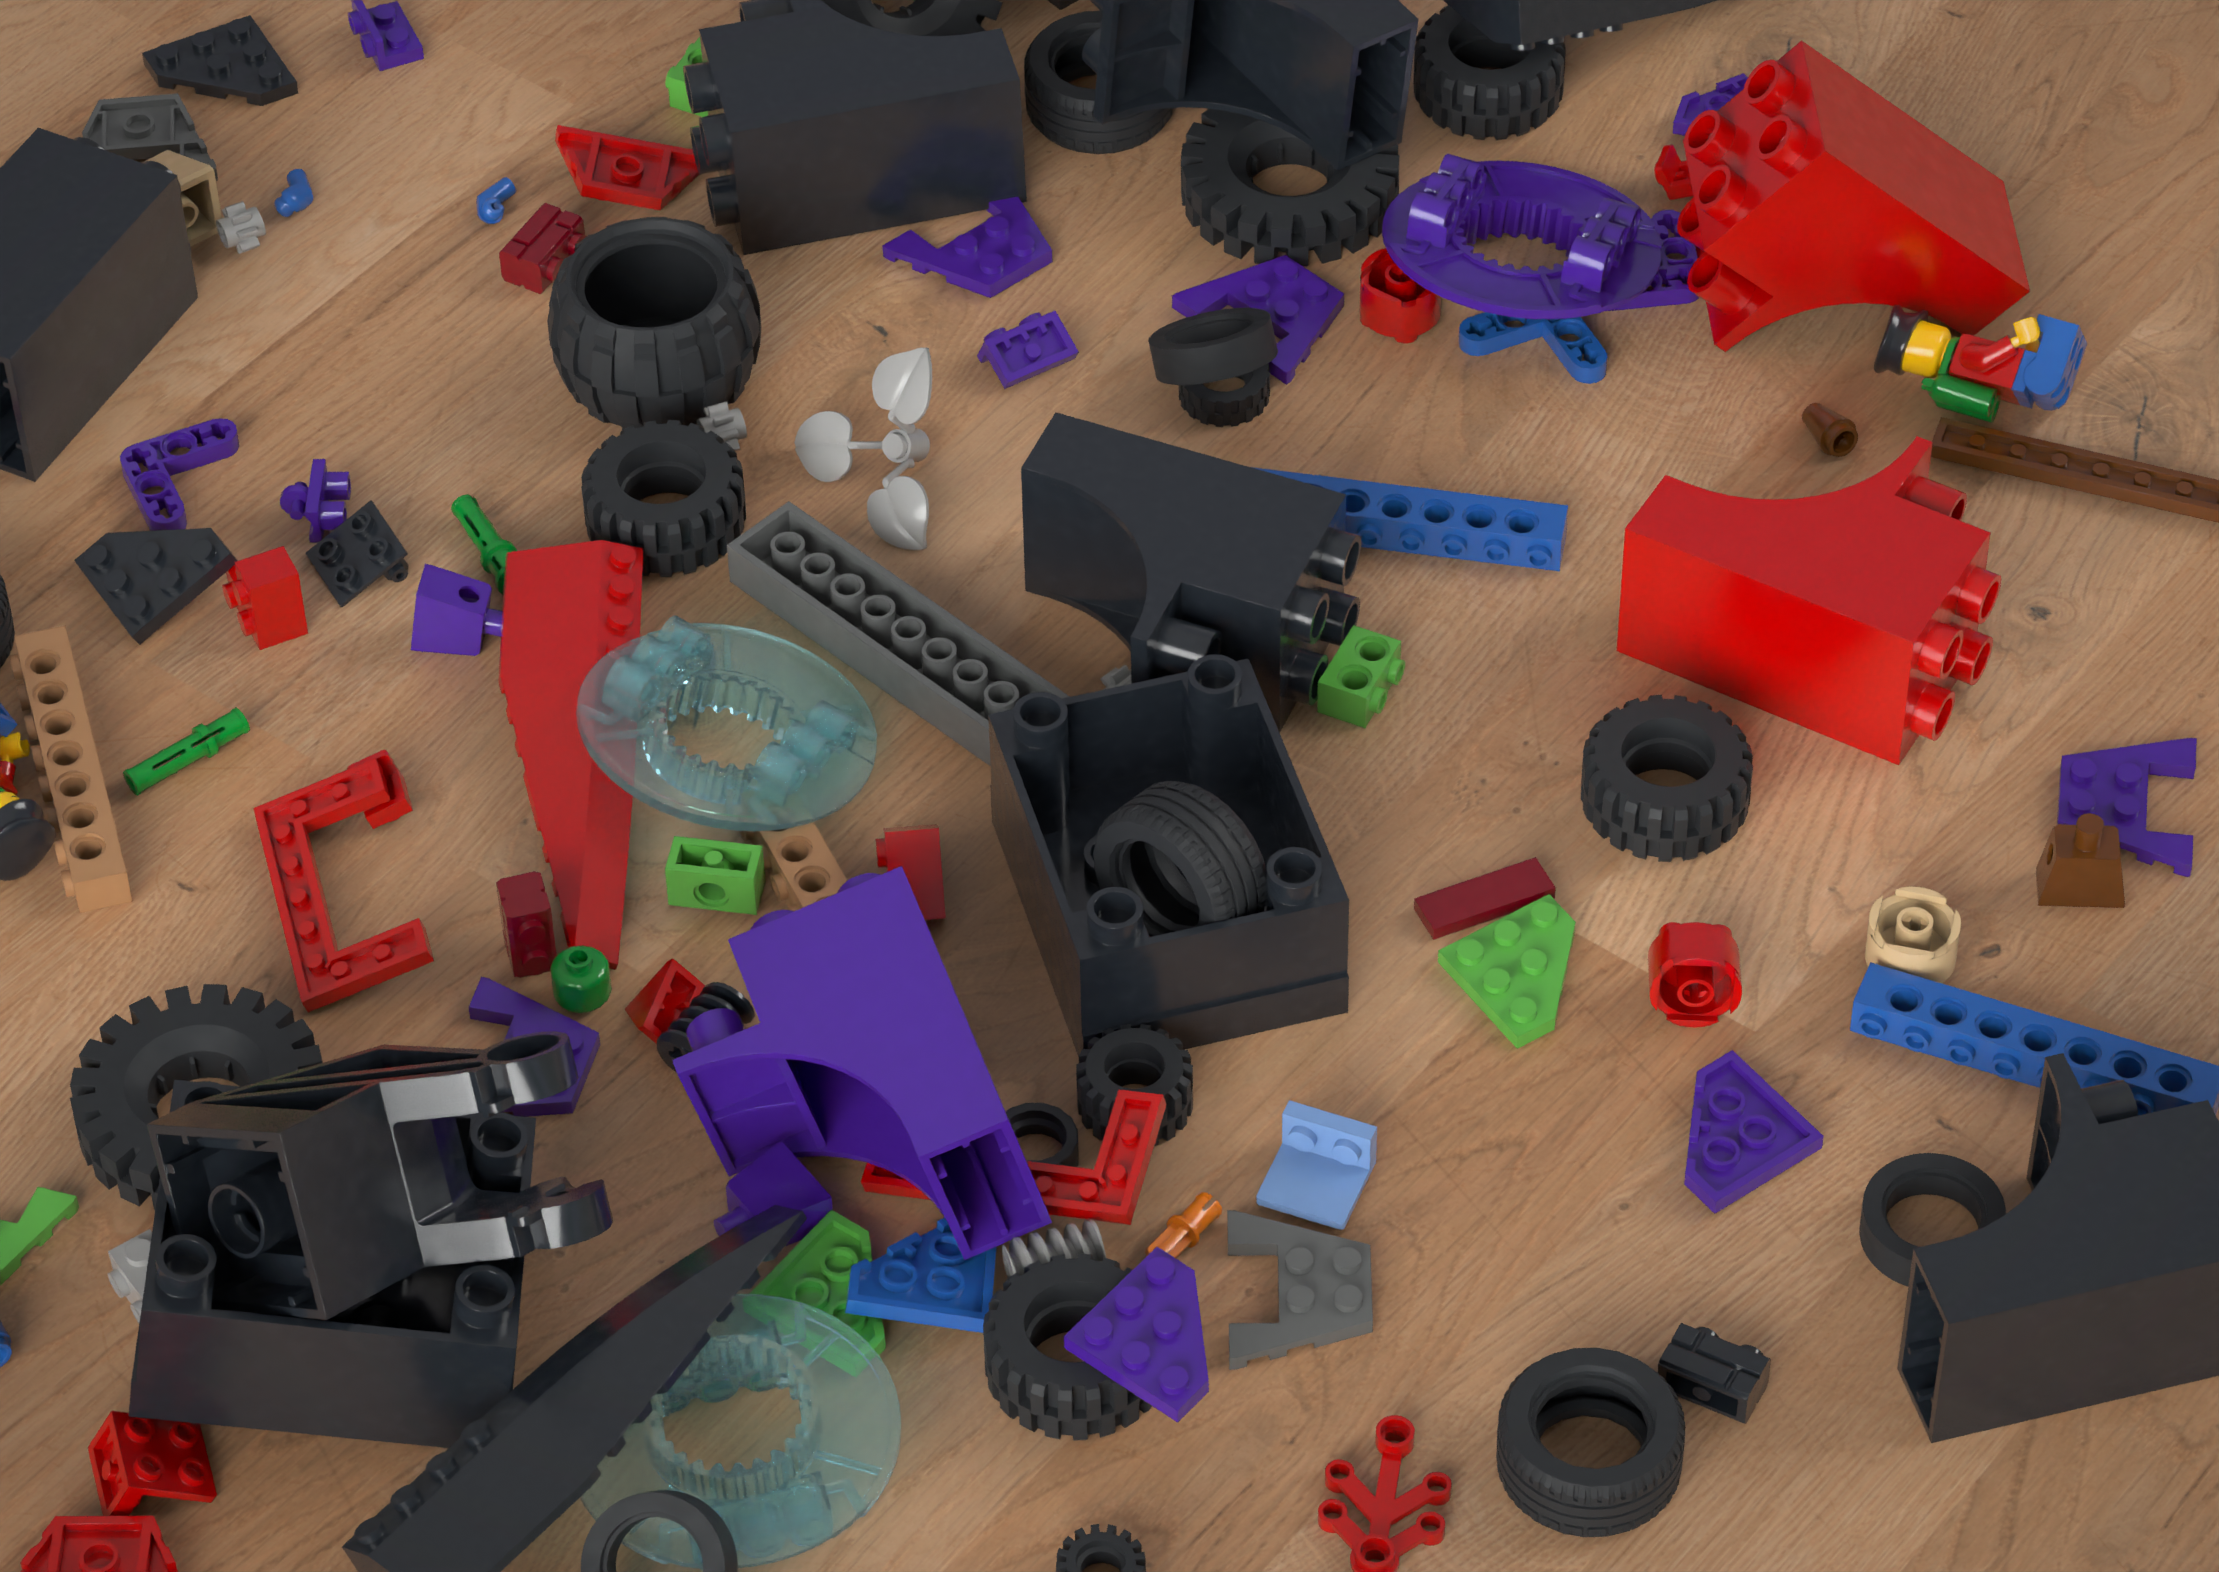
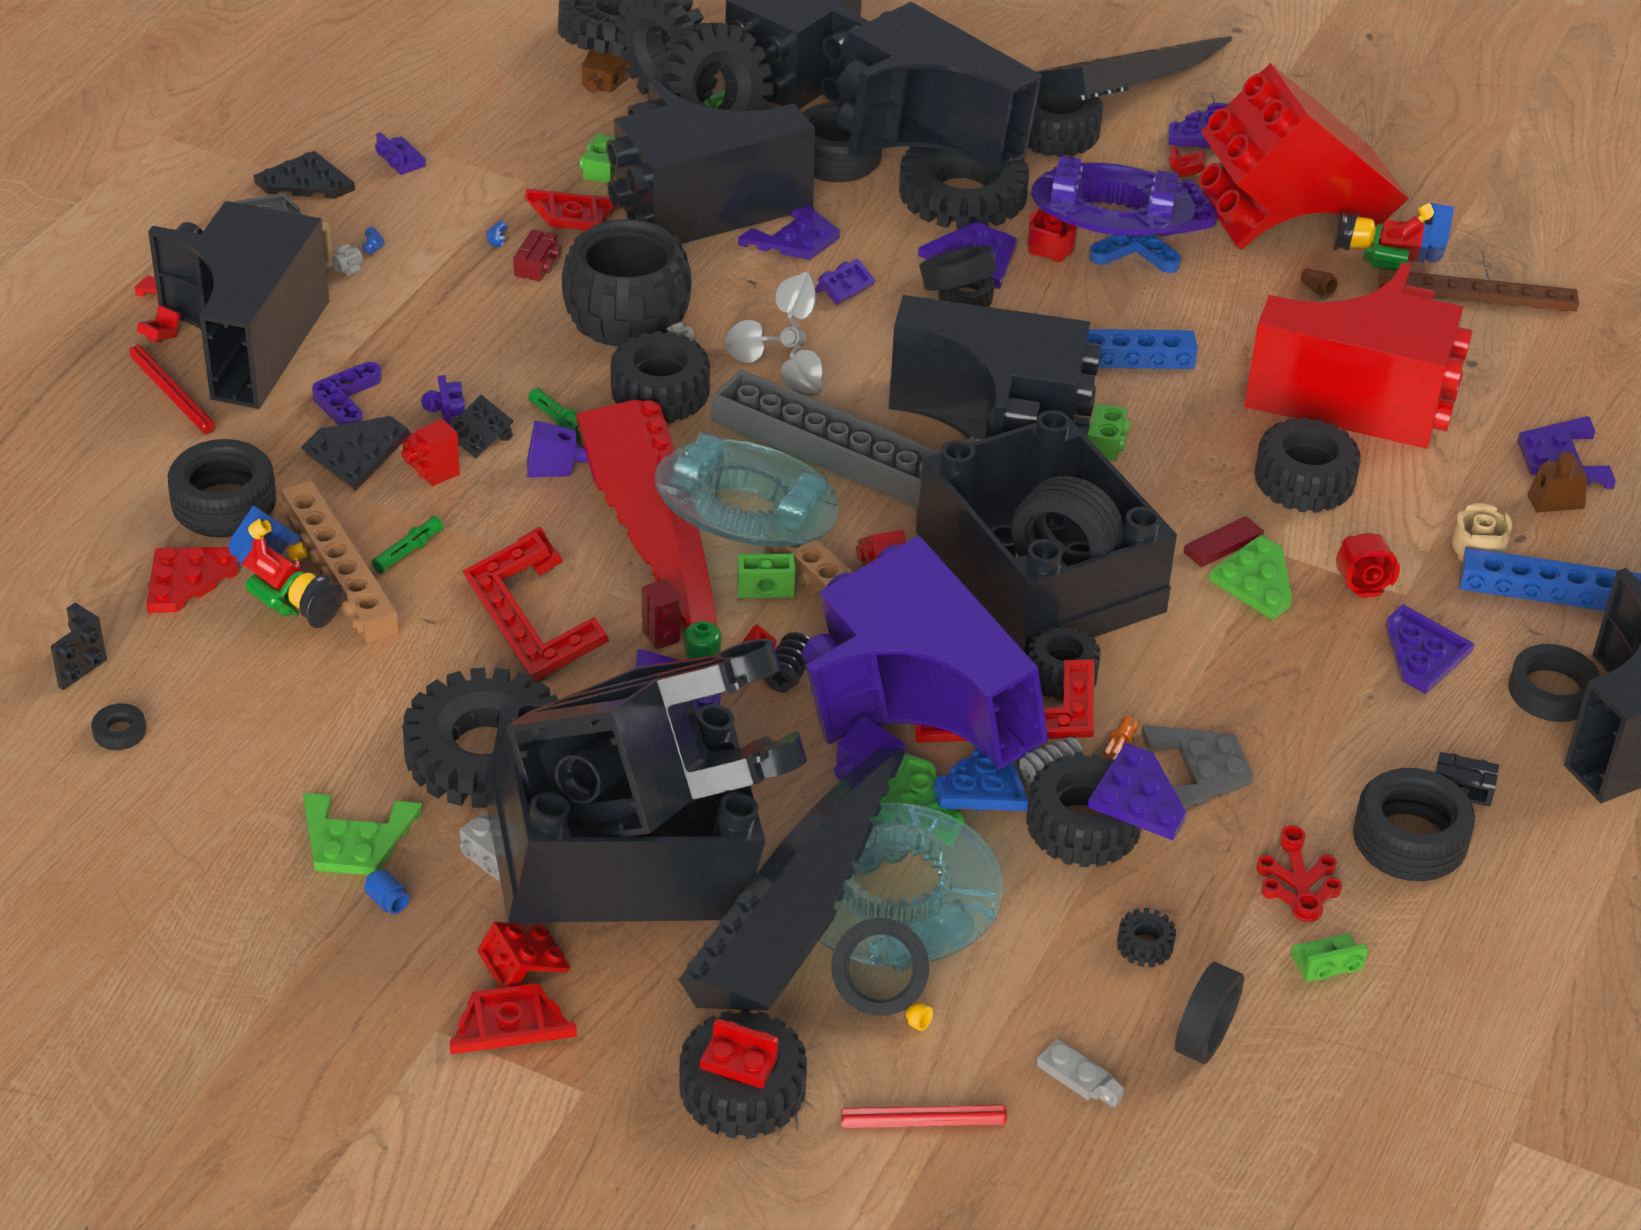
camera: 15 degrees left, 5 degrees down
(1319, 1166) = (1188, 692): medium blue bracket -> none

